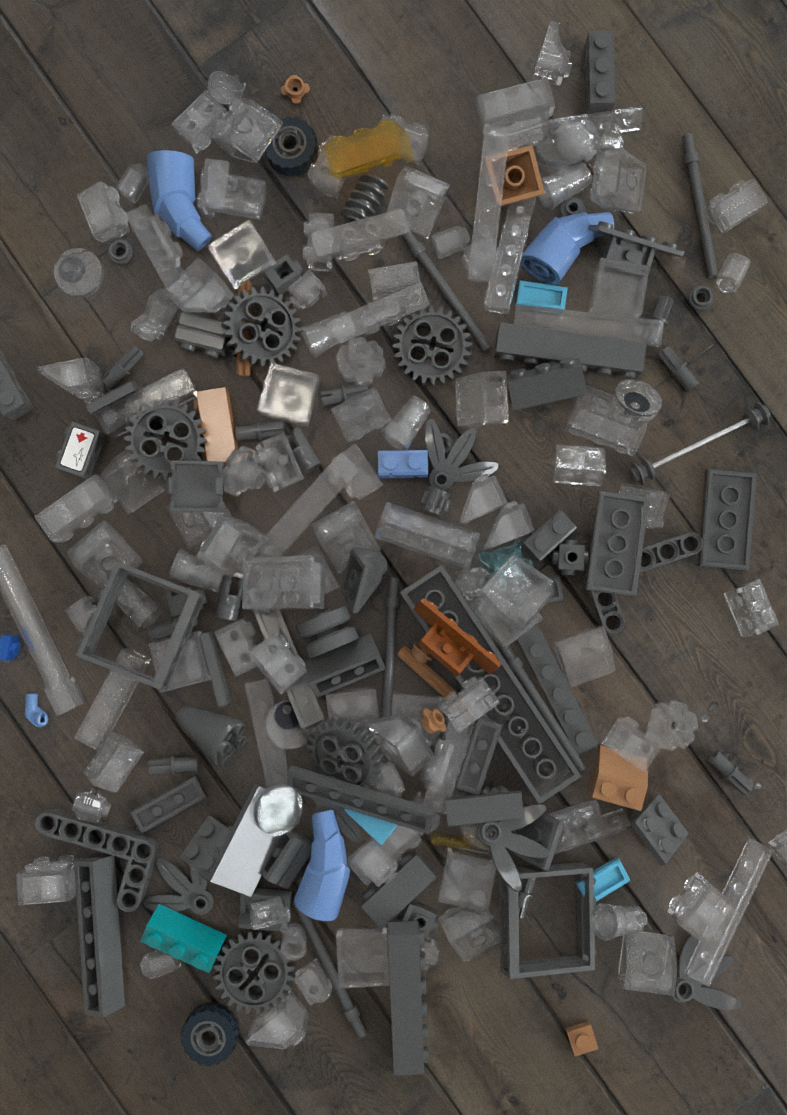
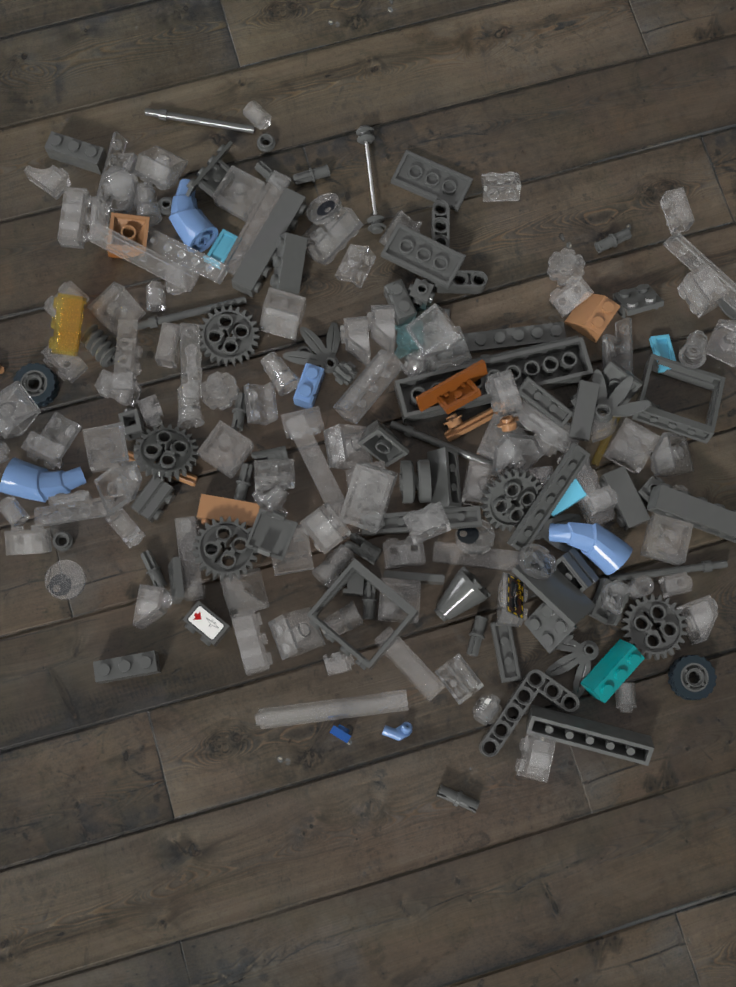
camera: 80 degrees left, 10 degrees down
(222, 794) = (511, 601): none -> slope
(585, 655) = (495, 308): clear slope -> none
(736, 206) = (210, 95): clear brick -> none

